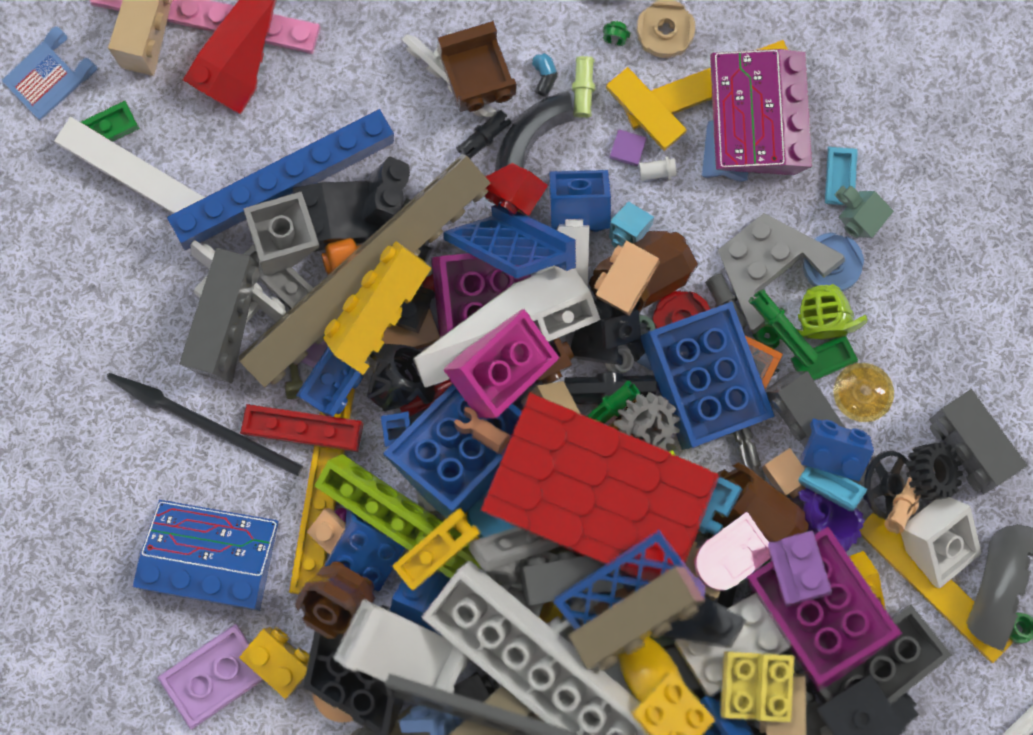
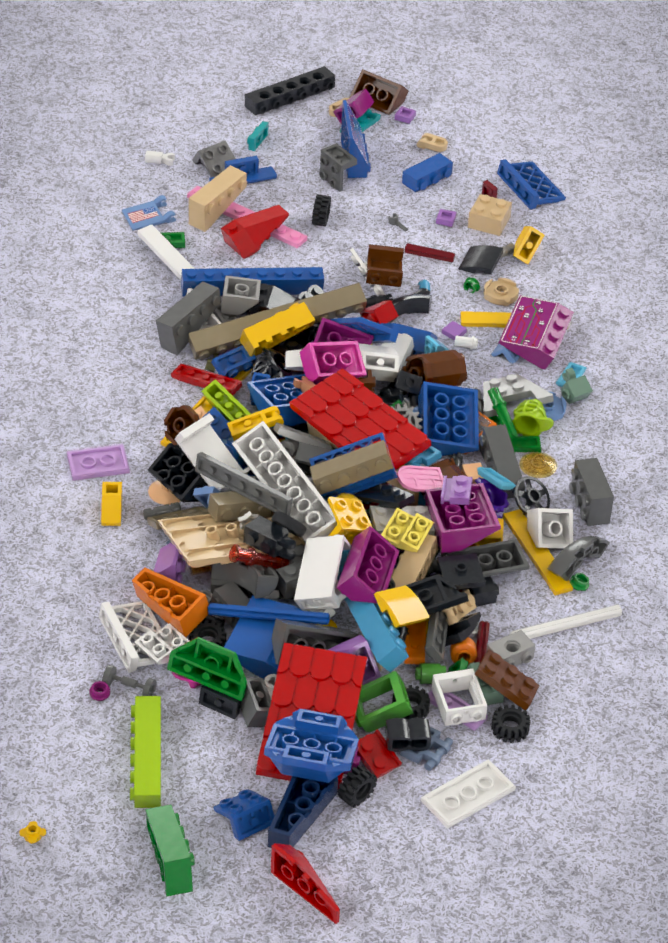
camera: 15 degrees right, 35 degrees down
(155, 398) = (155, 367): black piece -> none
(206, 555) = (120, 414): blue slope -> none
(276, 660) = (136, 460): yellow bracket -> none
(583, 86) = (441, 299): yellowish green pin -> none
(627, 277) = (422, 354): light nougat brick -> none
(646, 108) = (472, 315): yellow tile -> none
(837, 449) = (505, 463): blue bracket -> none
(904, 506) = (542, 502): light nougat pin -> none
(922, 466) = (559, 492): black tyre -> none

